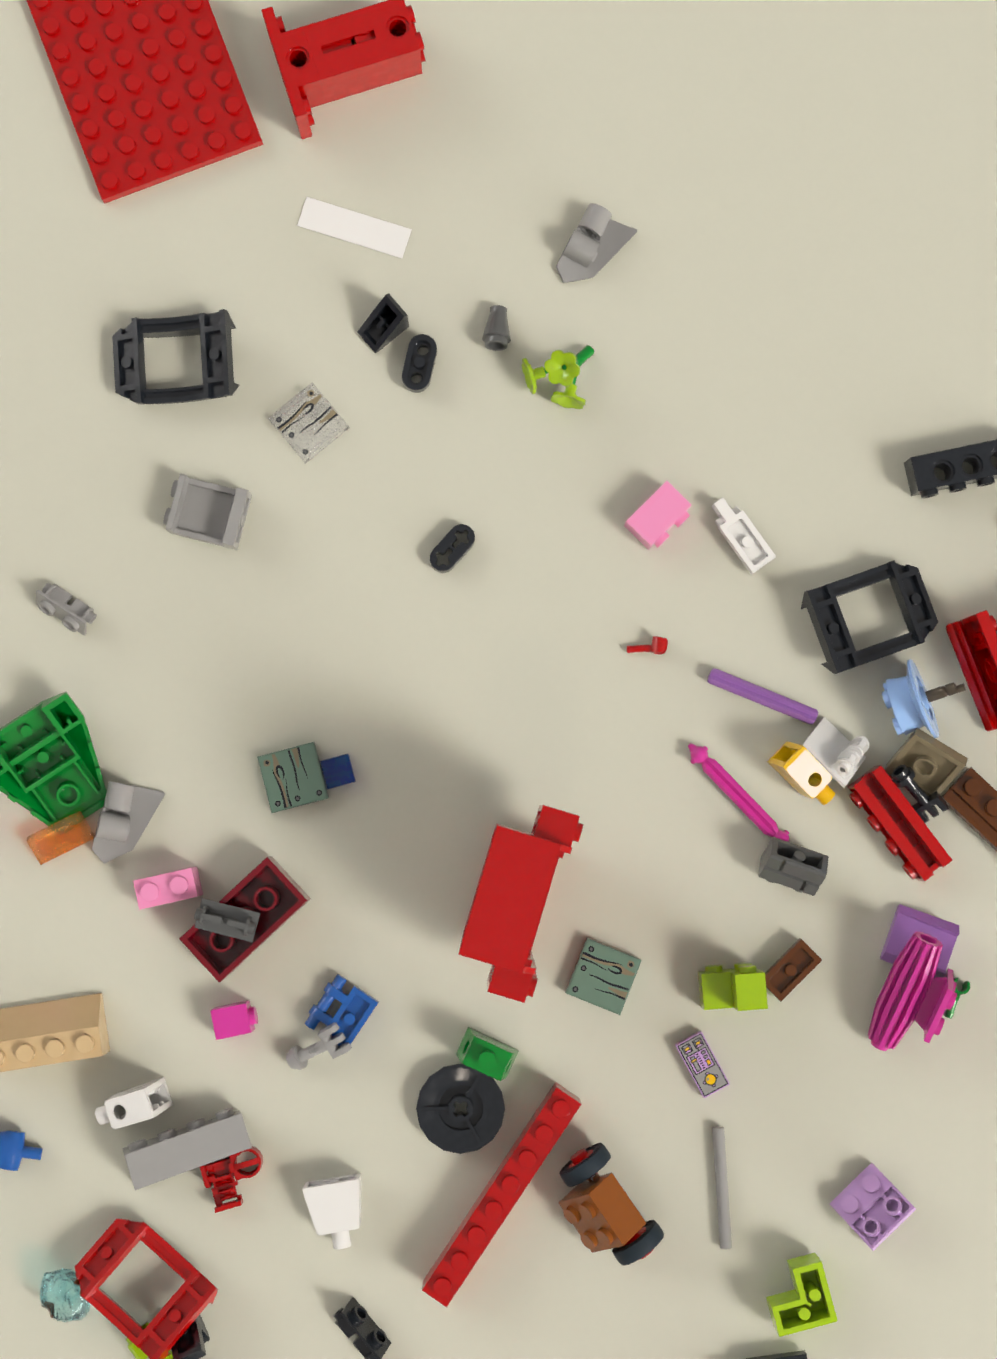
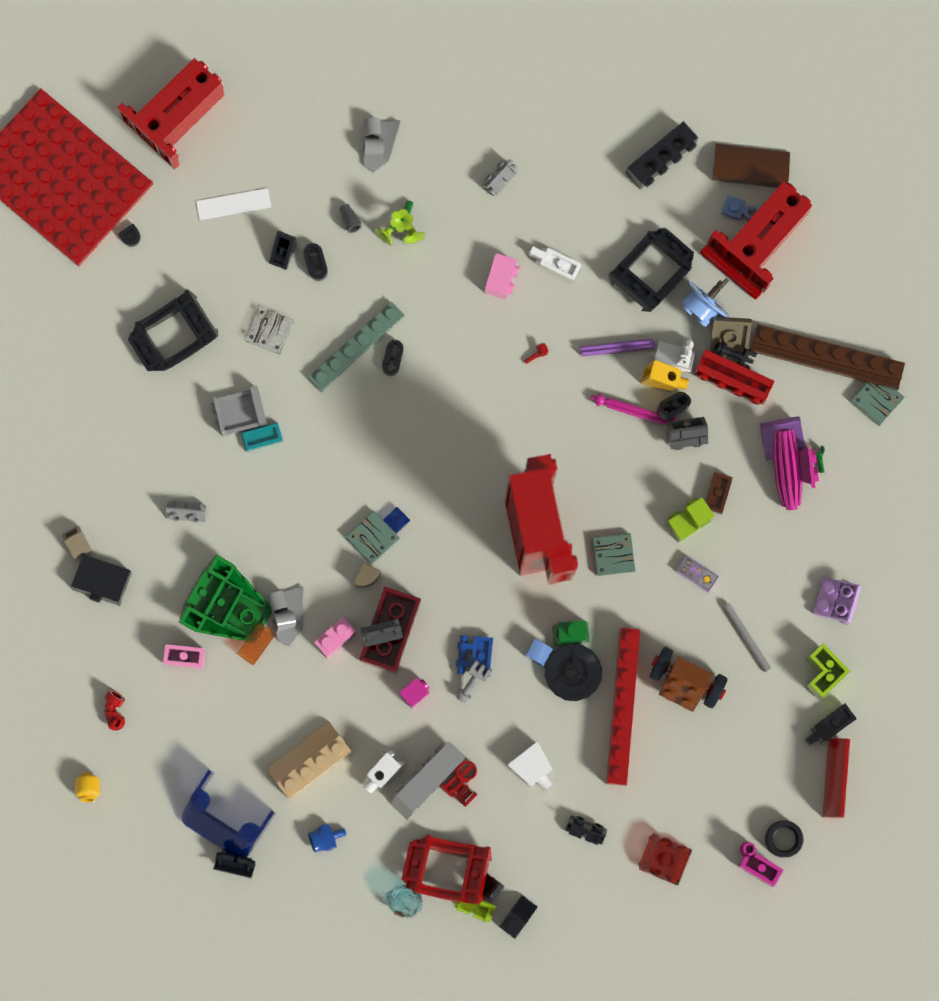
camera: 30 degrees left, 5 degrees down
(194, 198) = (130, 236): none -> black tile
(220, 562) = (262, 437): none -> teal tile
(255, 826) = (366, 576): none -> dark tan brick
(412, 507) = (356, 346): none -> sand green plate
(429, 1056) = (539, 652): none -> medium blue brick
(740, 373) = (494, 181): none -> light grey hinge
(793, 818) = (672, 405): none -> black plate

